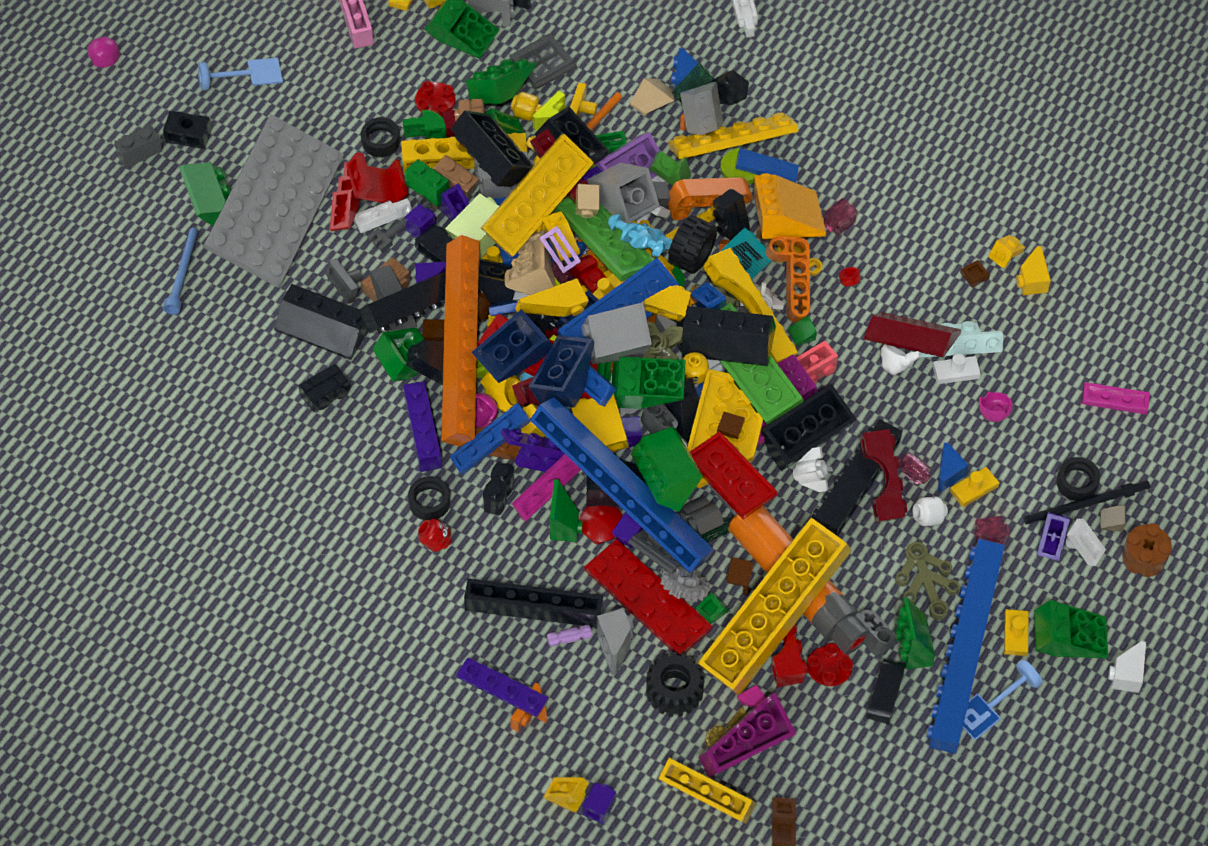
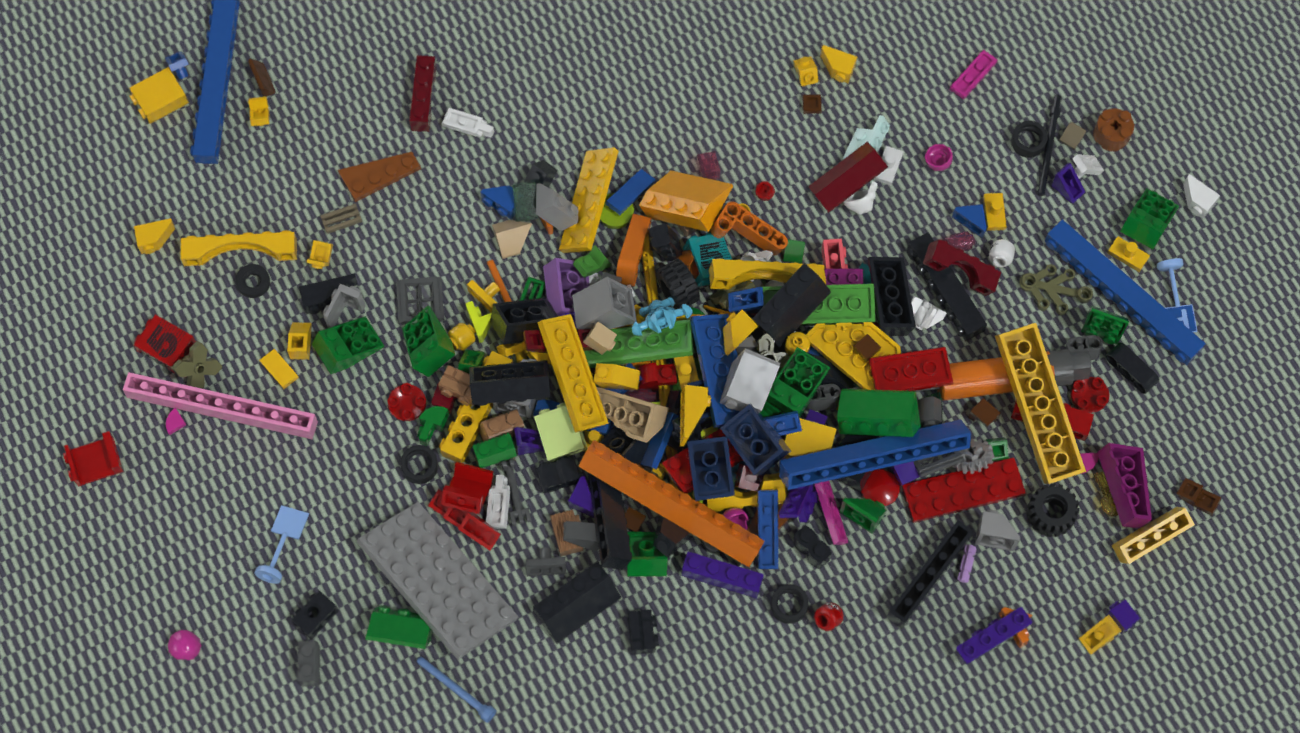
camera: 60 degrees left, 10 degrees up
(419, 220) = (526, 476): dark purple brick -> none
(550, 235) = (617, 383): lavender tile -> none
(991, 529) = (1041, 222): clear pink brick -> none

